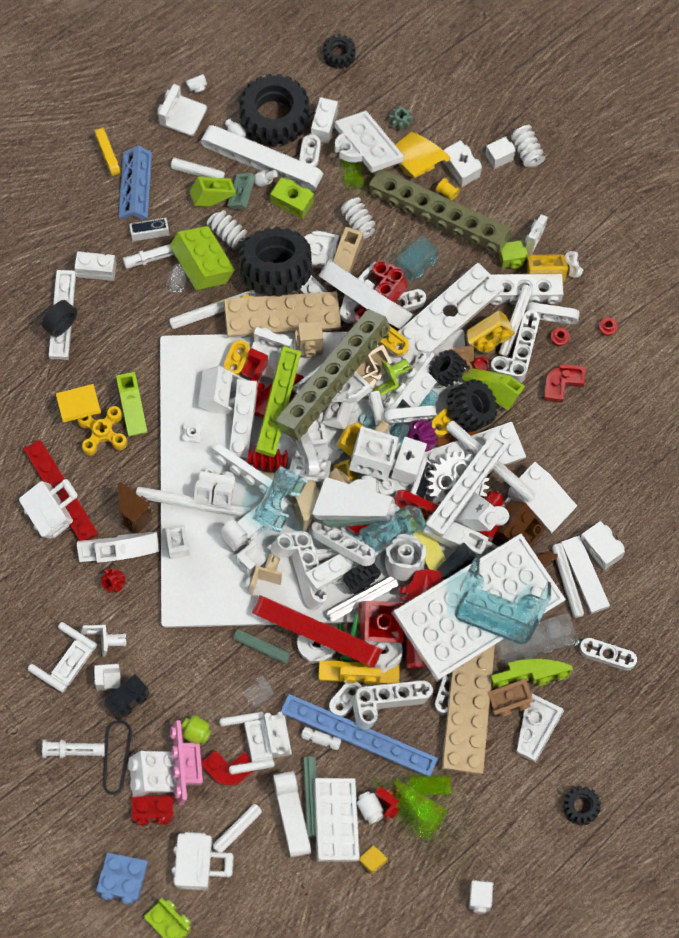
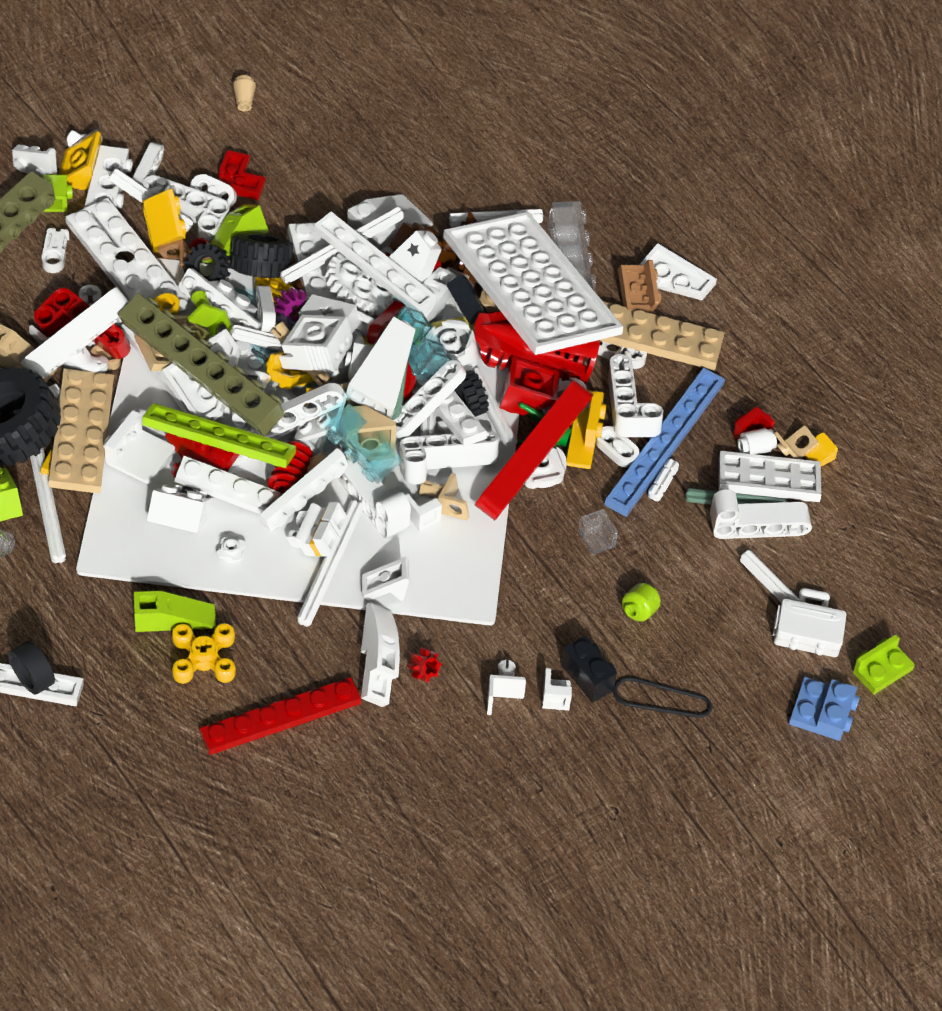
camera: 85 degrees left, 15 degrees down
(47, 509) = (310, 726): white piece -> none
(62, 749) = (648, 750): white pin -> none
(71, 661) = (528, 727): white plate -> none
(78, 403) = (161, 669): yellow slope -> none
(134, 510) = (330, 626): reddish brown slope -> none
(151, 772) = (692, 657): white bracket -> none
(152, 809) = (738, 664): red bracket -> none
(187, 763) = (685, 617): bright pink bracket -> none
(219, 769) = (696, 582): red plate -> none
(237, 360) = (136, 485): yellow plate -> none
(255, 365) = (153, 461): red panel -> none
(257, 741) = (662, 540): white plate -> none
(261, 646) = (535, 523): sand green axle -> none
(277, 735) = (656, 523): white hinge -> none
(309, 339) = (132, 392): tan brick -> none
(371, 834) = (789, 446): none -> tan bracket
(417, 258) = (35, 279): clear light blue brick -> none
(422, 812) = (772, 387): clear neon green slope -> none
(431, 785) = (736, 381): clear neon green hinge -> none
(459, 265) = (55, 247): none -> white piece
(480, 897) = (872, 356): white brick -> none
(497, 614) = (555, 248): clear light blue windscreen -> none
(538, 670) = (606, 266): lime slope -> none
(540, 364) = (215, 187): none -> white plate
(560, 341) = (178, 170): red plate -> none
(573, 814) = (771, 241): black tyre -> none
(585, 575) = (493, 200): white tile -> none
(602, 545) = (460, 177): white brick -> none
(604, 646) = (592, 190): white beam -> none
(605, 330) = (176, 124): red plate -> none
(654, 369) = (244, 92): none -> tan cone

